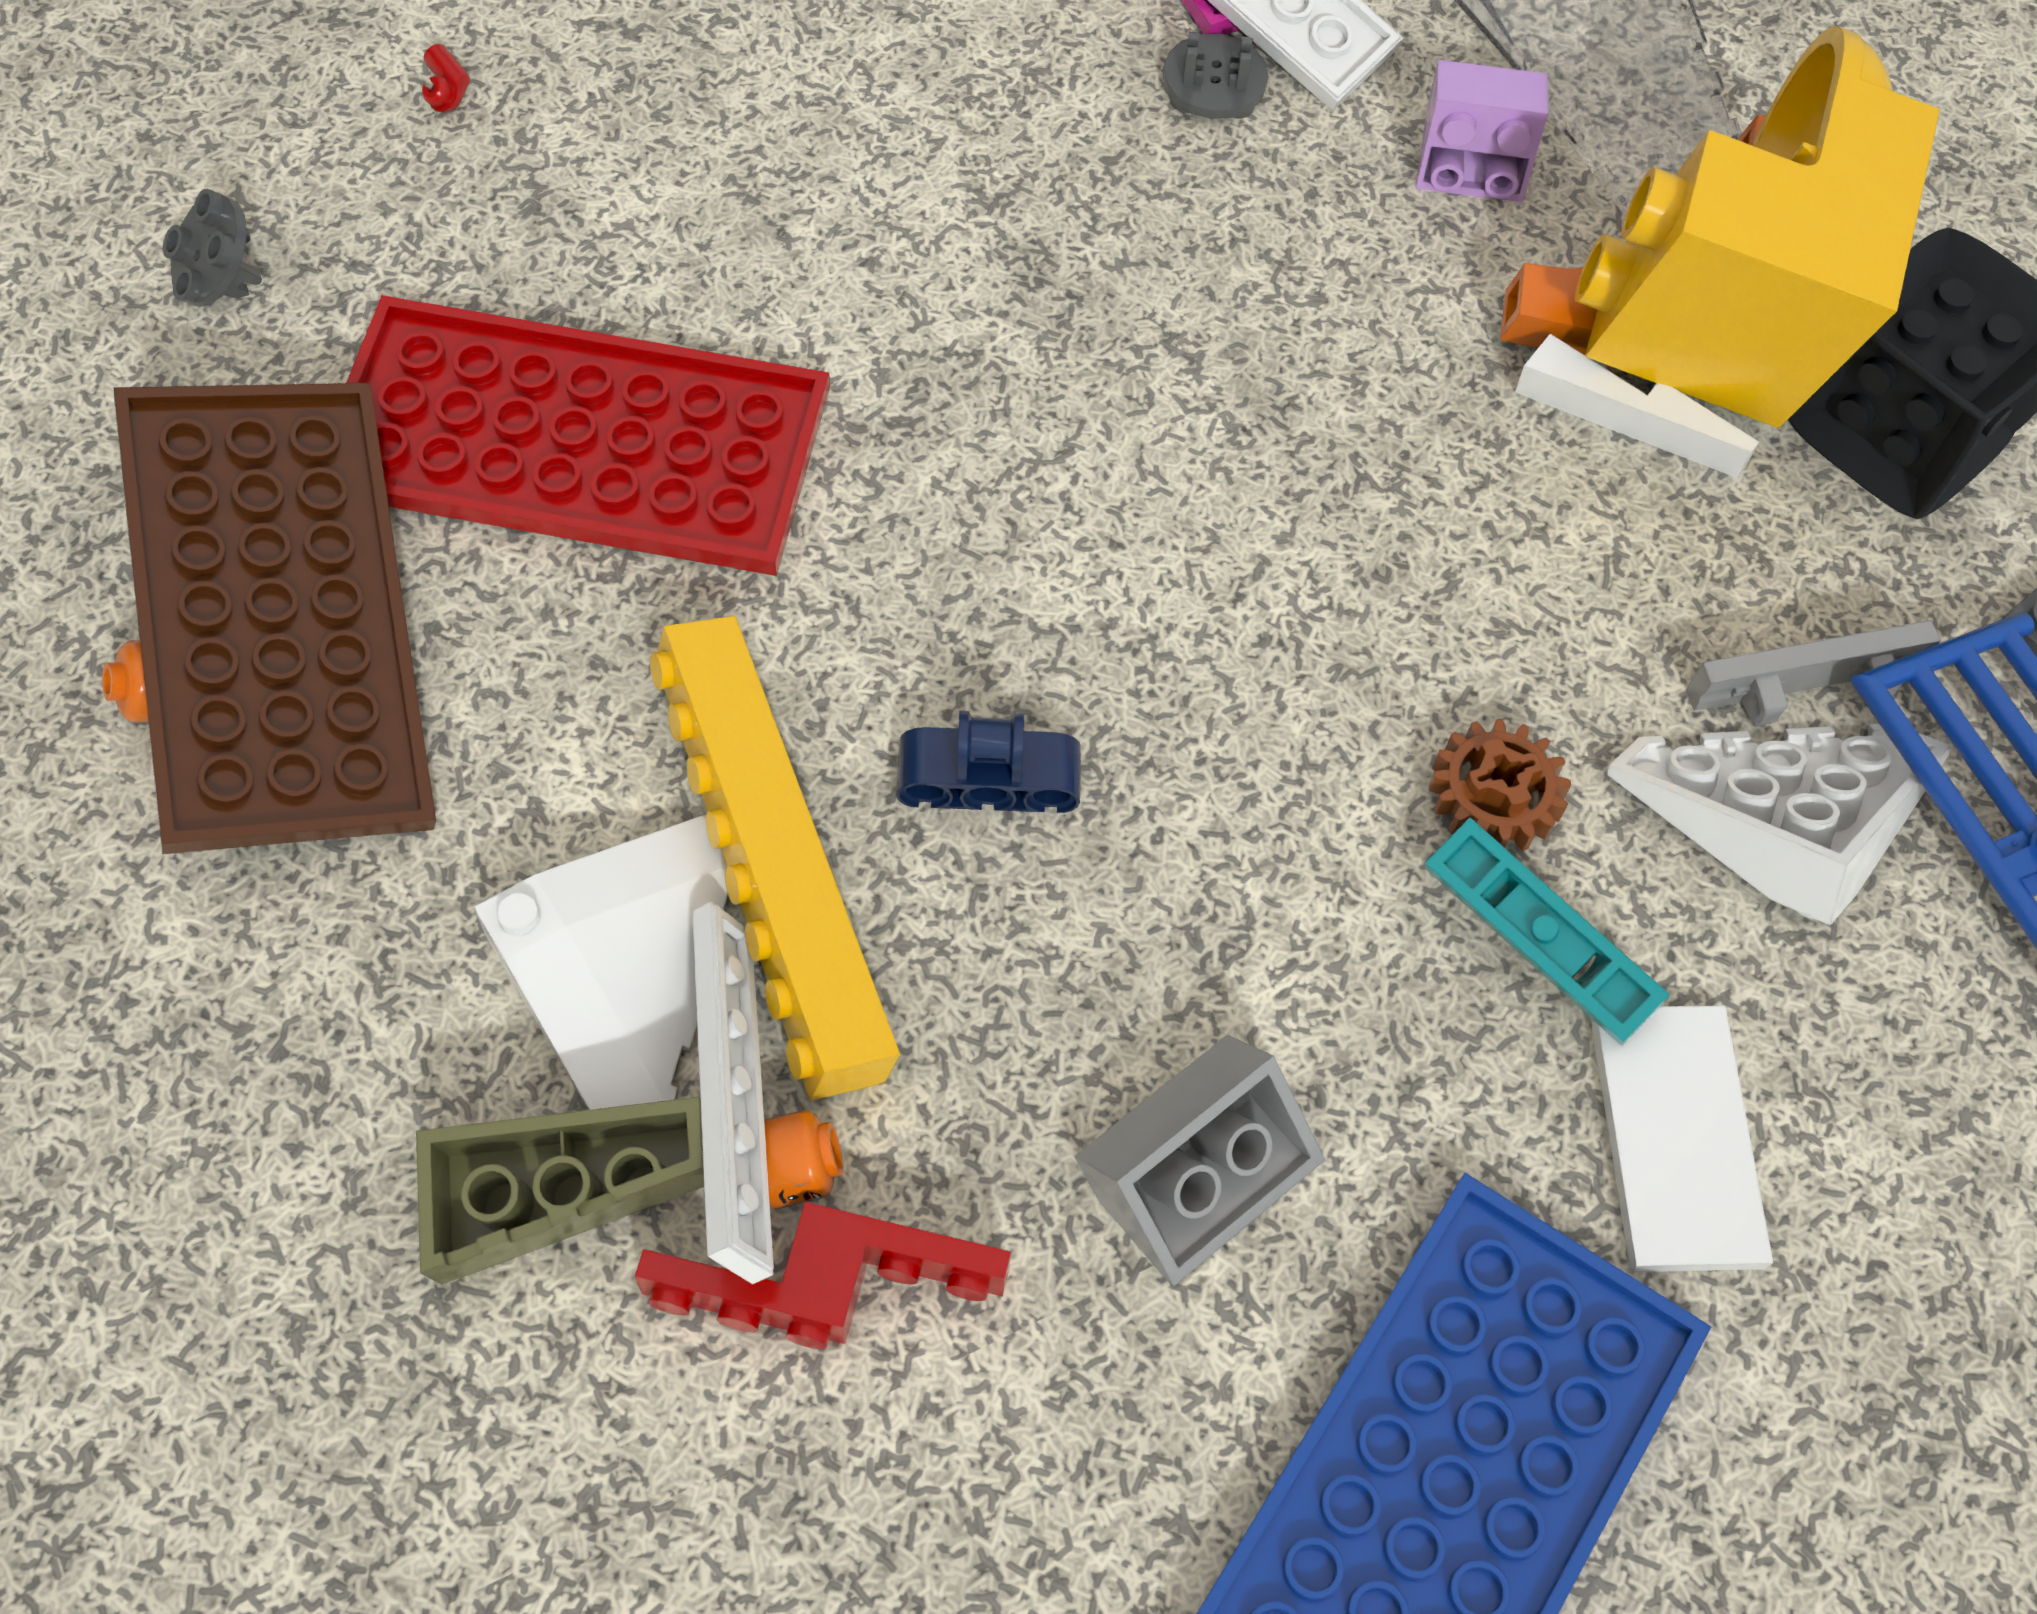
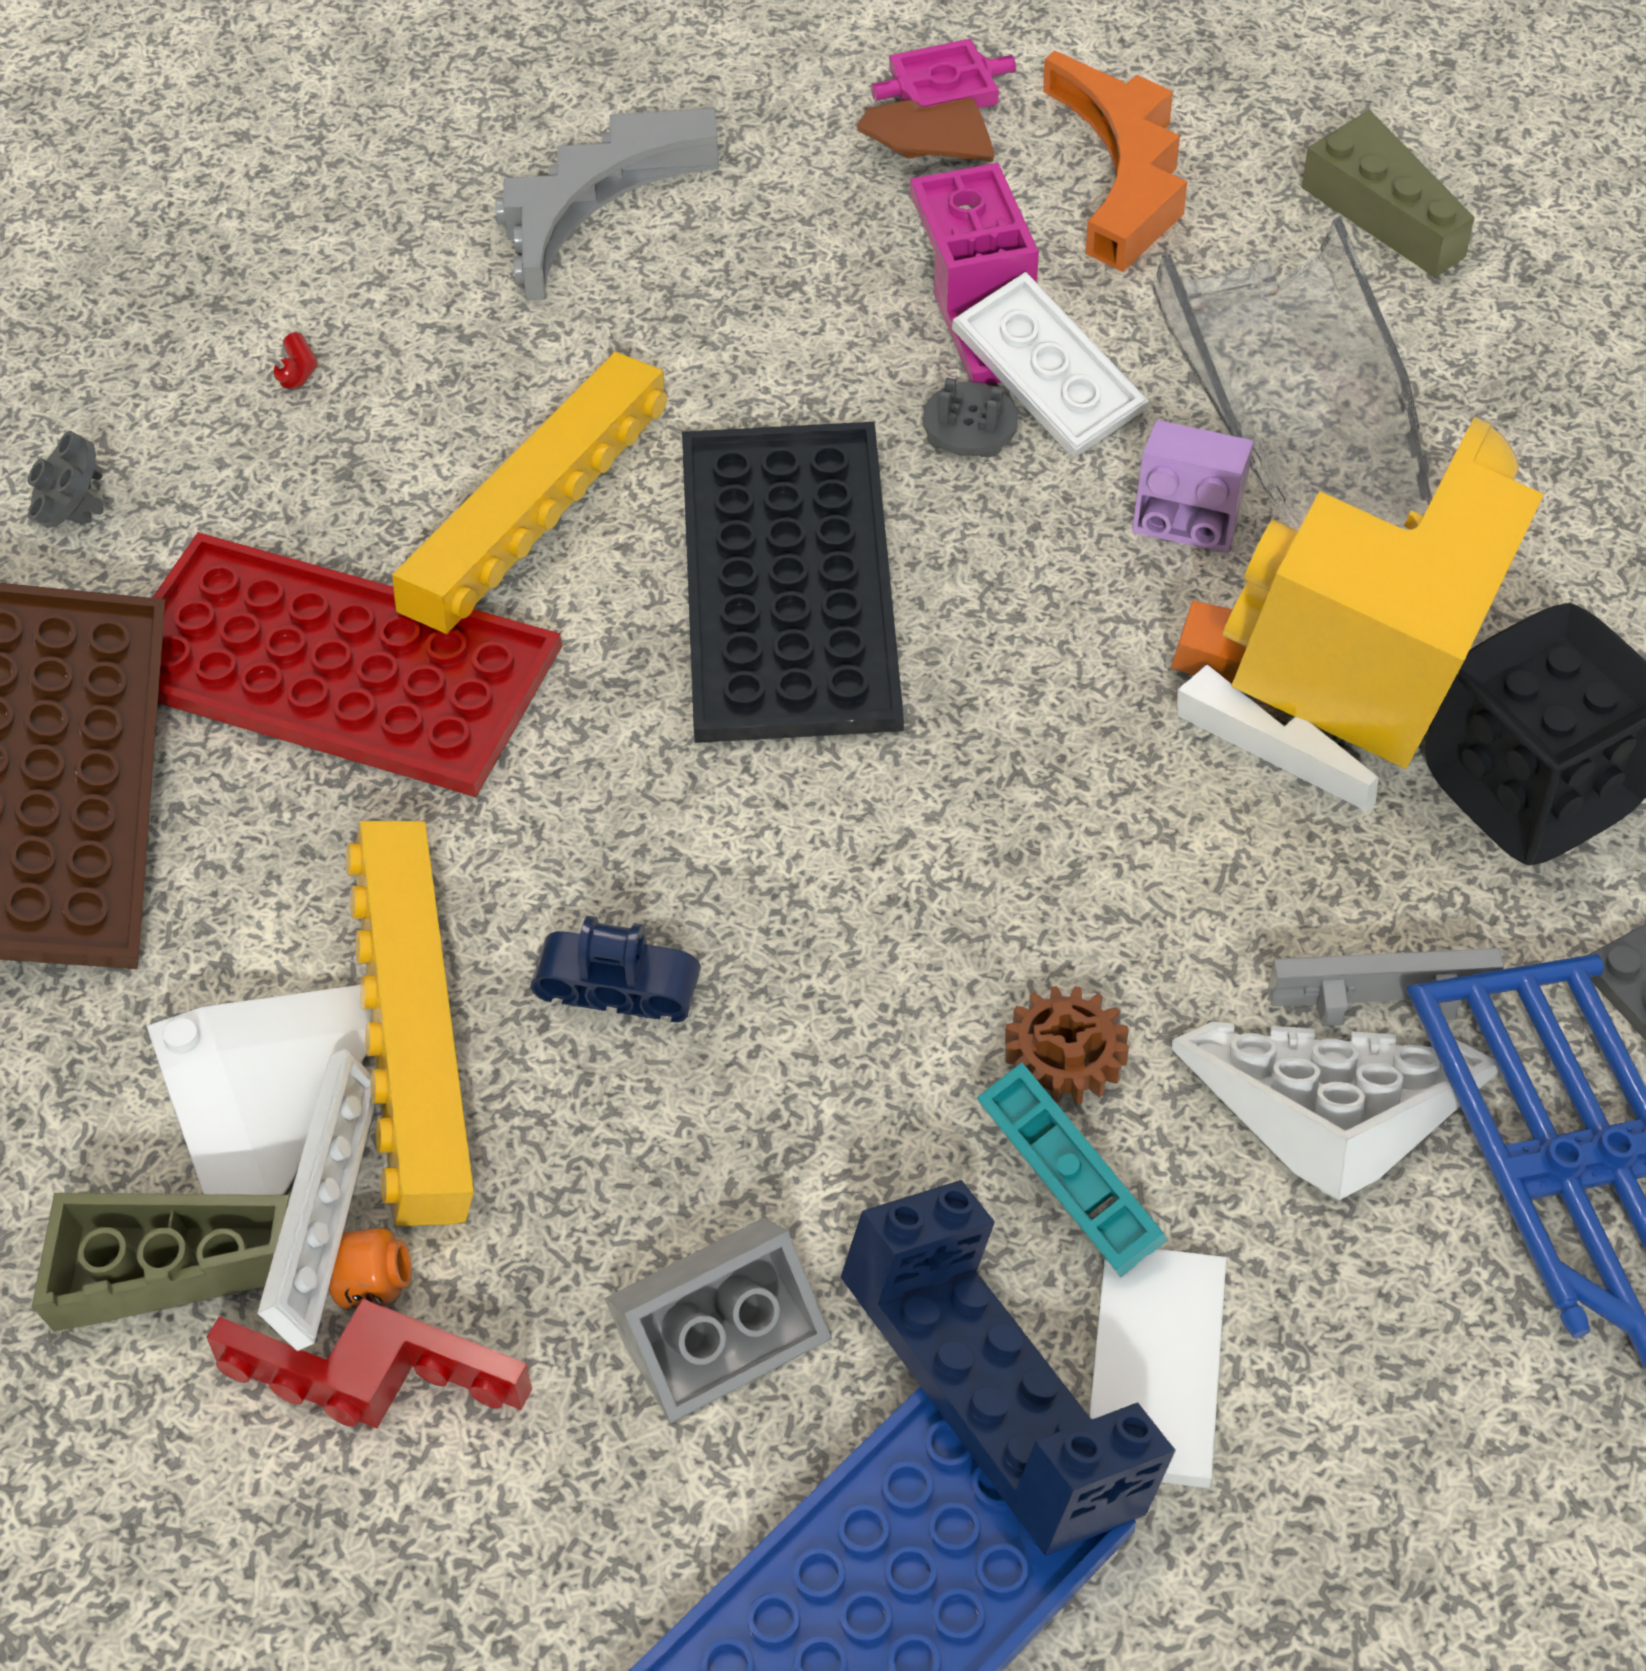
camera: 15 degrees right, 10 degrees down
(755, 212) = (528, 493): none -> yellow brick
(1066, 286) = (789, 584): none -> black plate
(1529, 1196) = (1029, 1435): none -> dark blue plate

